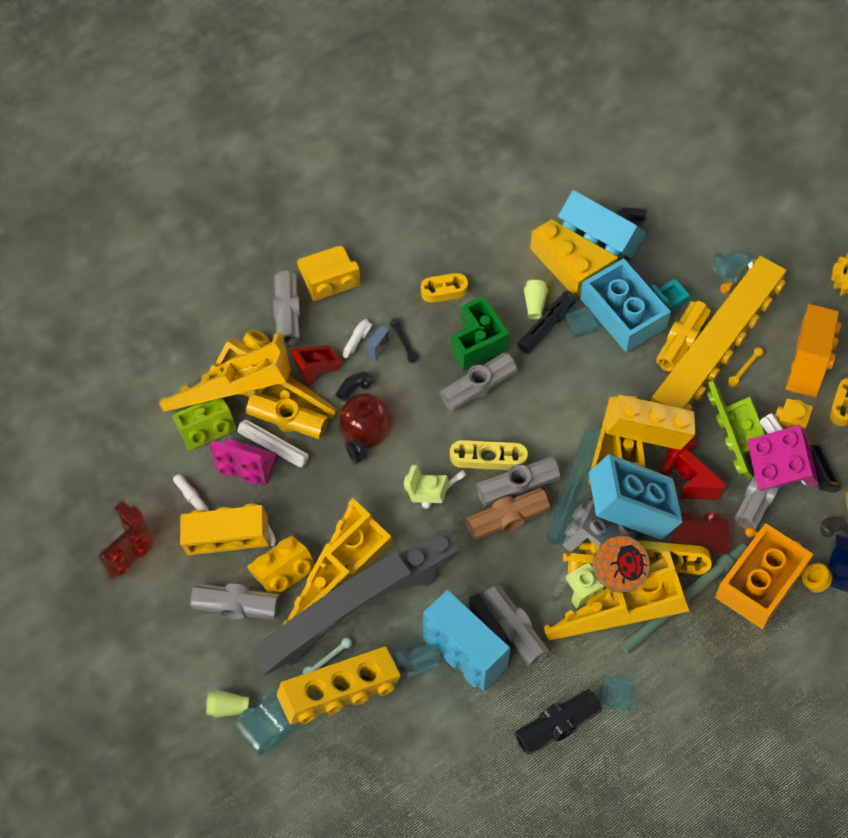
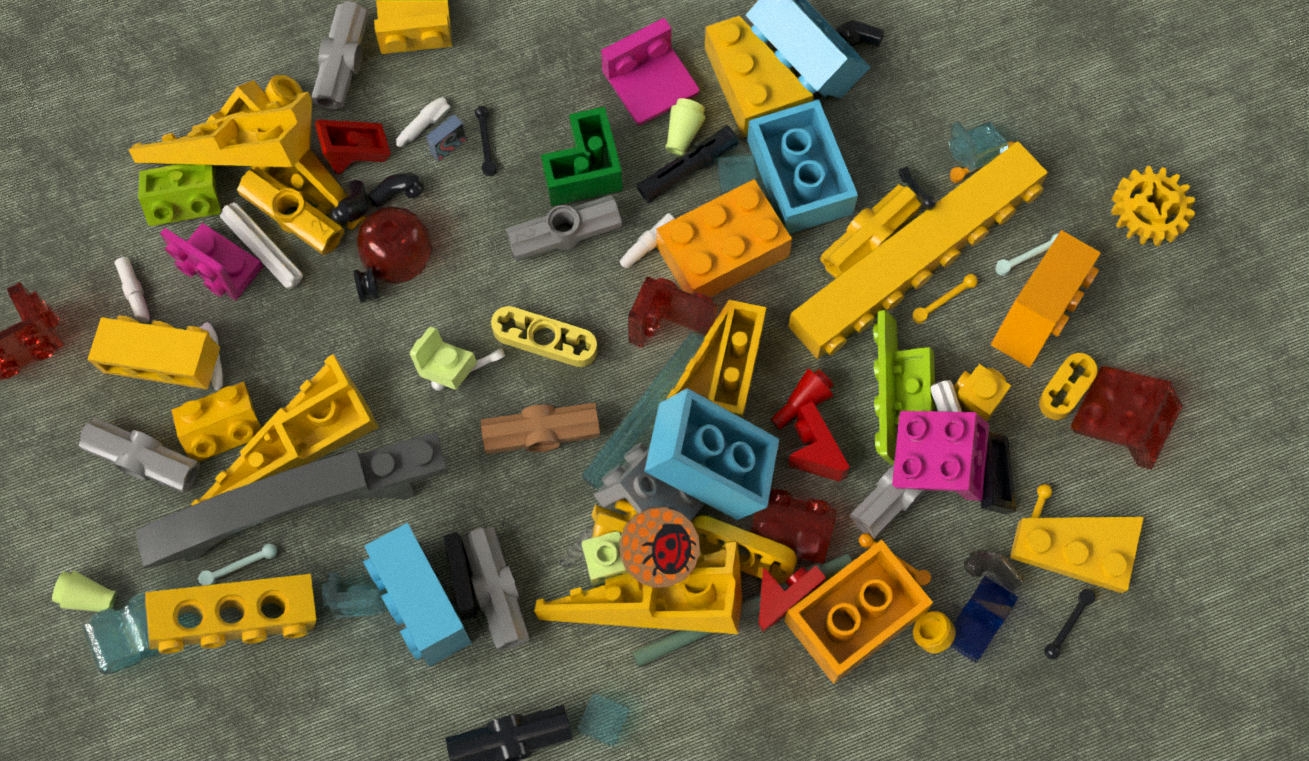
camera: 15 degrees right, 10 degrees up
(329, 401) = (353, 206): none -> black arm
(444, 287) = (564, 78): yellow beam -> none
(499, 270) = (647, 72): none -> dark pink bracket
(532, 475) = (595, 383): light grey piece -> none
(537, 377) = (644, 244): none -> white piece
(575, 412) = (665, 300): none -> clear red bracket
(589, 365) = (724, 241): none -> light orange brick
(650, 422) = (767, 353): yellow brick -> none
(672, 294) = (871, 169): teal bracket -> none
(708, 581) = (776, 601): none -> red slope
(717, 306) = (928, 202): none -> black hinge
(777, 337) = (1004, 266): none -> light aqua hinge

